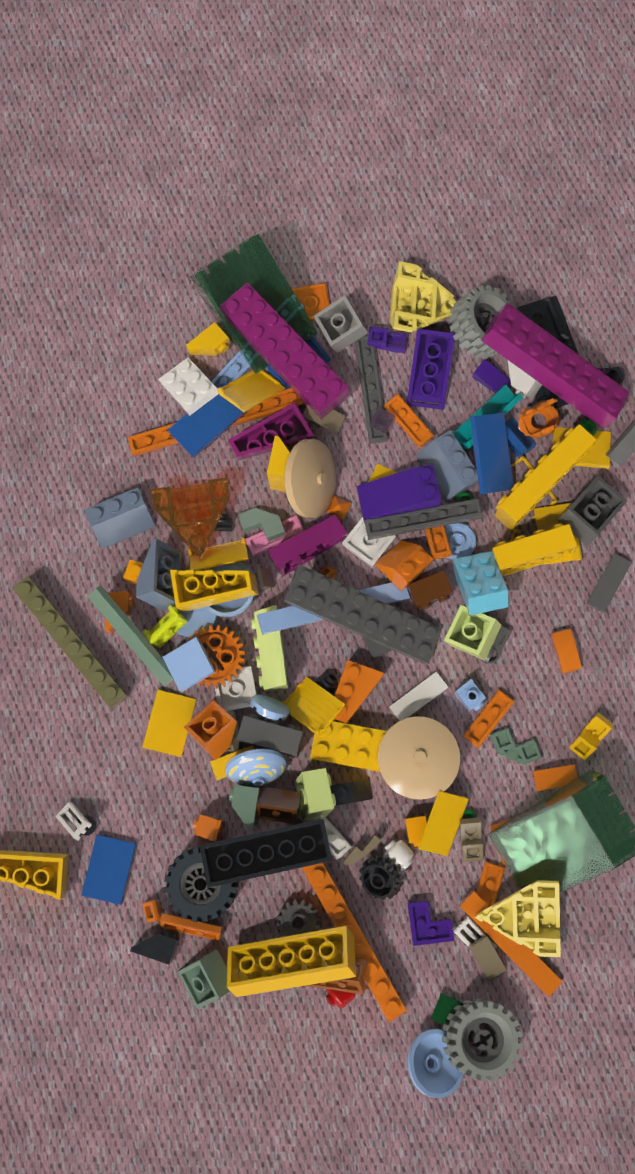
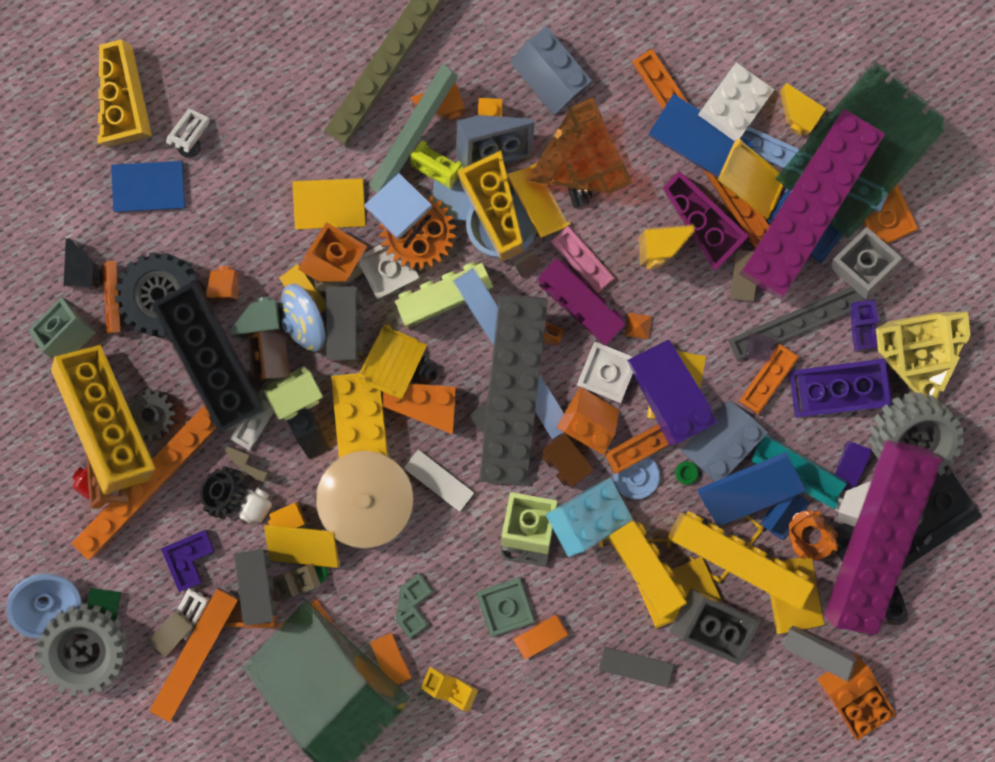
camera: 65 degrees right, 10 degrees up
(156, 910) = (119, 253): orange slope -> none
(256, 518) = (597, 233): sand green tile -> none
(269, 707) = (375, 313): light blue tile -> none
(310, 478) = (658, 282): tan dish -> none
(423, 519) = (649, 429): dark grey tile -> none
(463, 695) = (460, 531): light blue brick -> none
(467, 872) = (255, 587): none -> dark grey brick
(488, 718) = (437, 567): orange tile -> none
(529, 917) = (224, 669): light yellow wedge -> none
(535, 672) = (505, 607): none -> sand green tile
(589, 426) = (819, 595): green tile -> none

